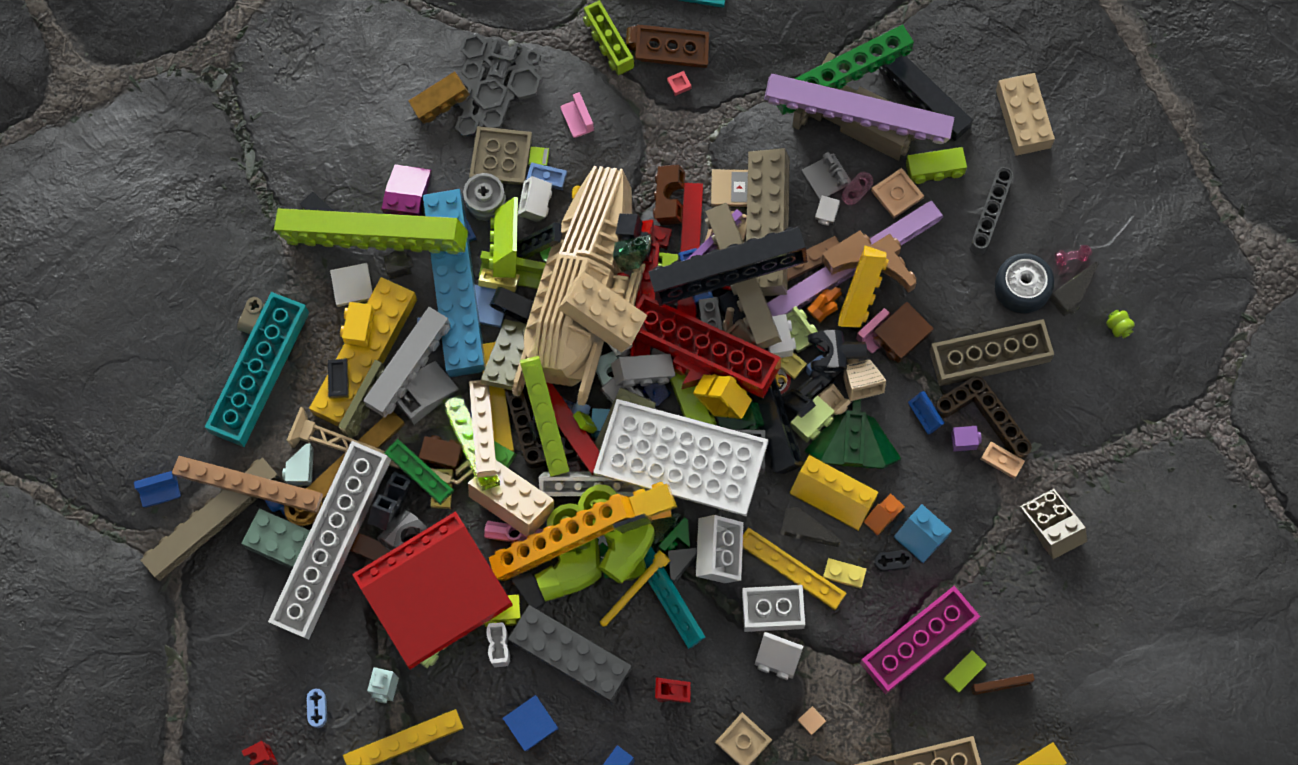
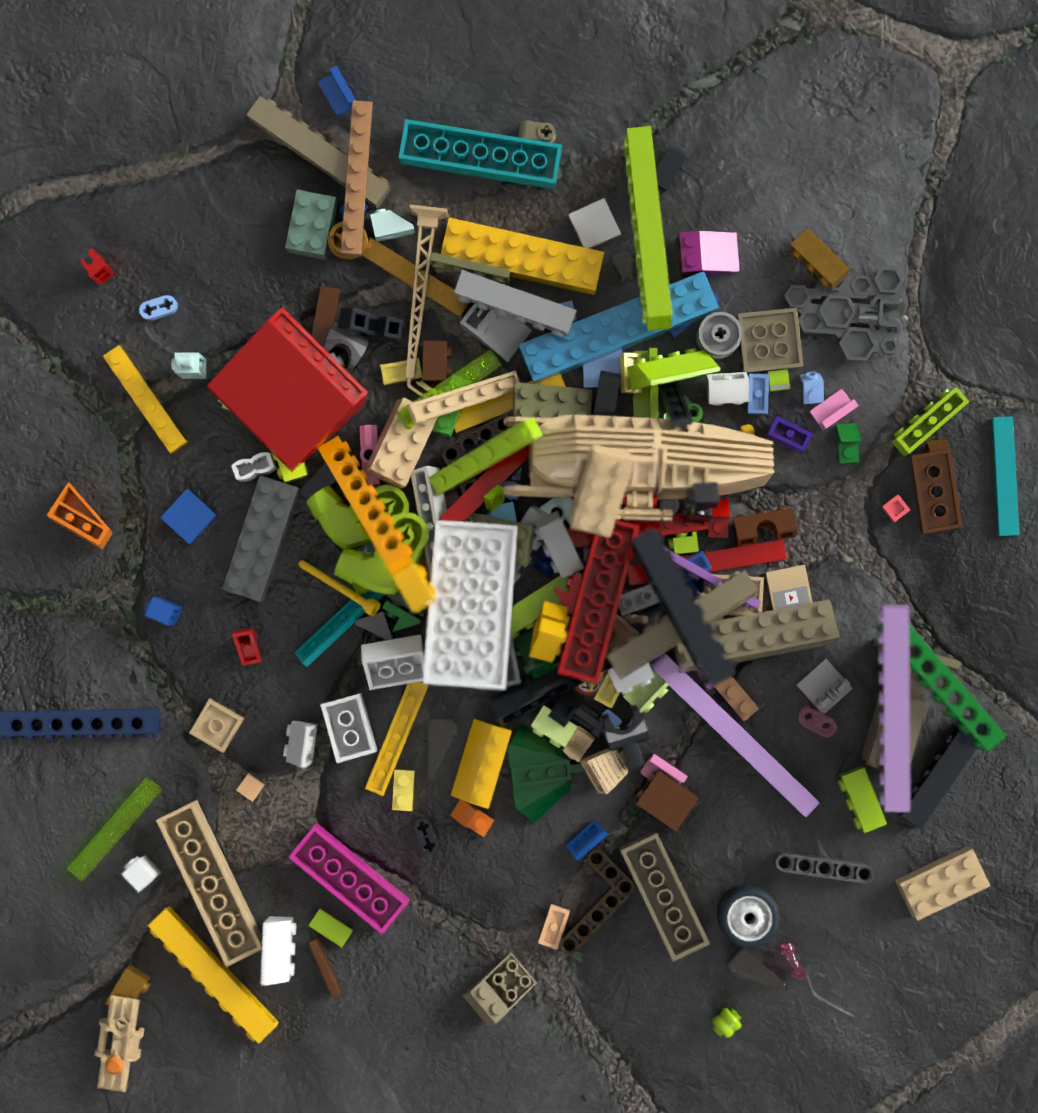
camera: 75 degrees right, 15 degrees up
(330, 540) = (319, 275): white brick -> none
(338, 378) = (484, 238): black tile -> none
(357, 324) = (544, 242): yellow brick -> none
(419, 471) = (409, 344): green tile -> none
(553, 129) = (812, 388): none -> light blue bracket
(590, 155) = (788, 435): none -> dark purple brick
(610, 111) = (847, 443): none -> green slope
(631, 252) = (677, 504): clear green slope -> none
(633, 523) = (387, 573): piece -> none
(824, 304) = (679, 713): orange rock -> none
(827, 210) = (784, 695): white brick -> none
(848, 252) = (741, 763): medium nougat arch -> none
(862, 287) = (700, 750): yellow slope -> none
(897, 193) = (821, 764): light nougat plate -> none
(922, 533) = (458, 860): dark azure slope -> none
(965, 438) = (568, 885): medium lavender brick -> none
(977, 723) = (278, 950): none -> white slope

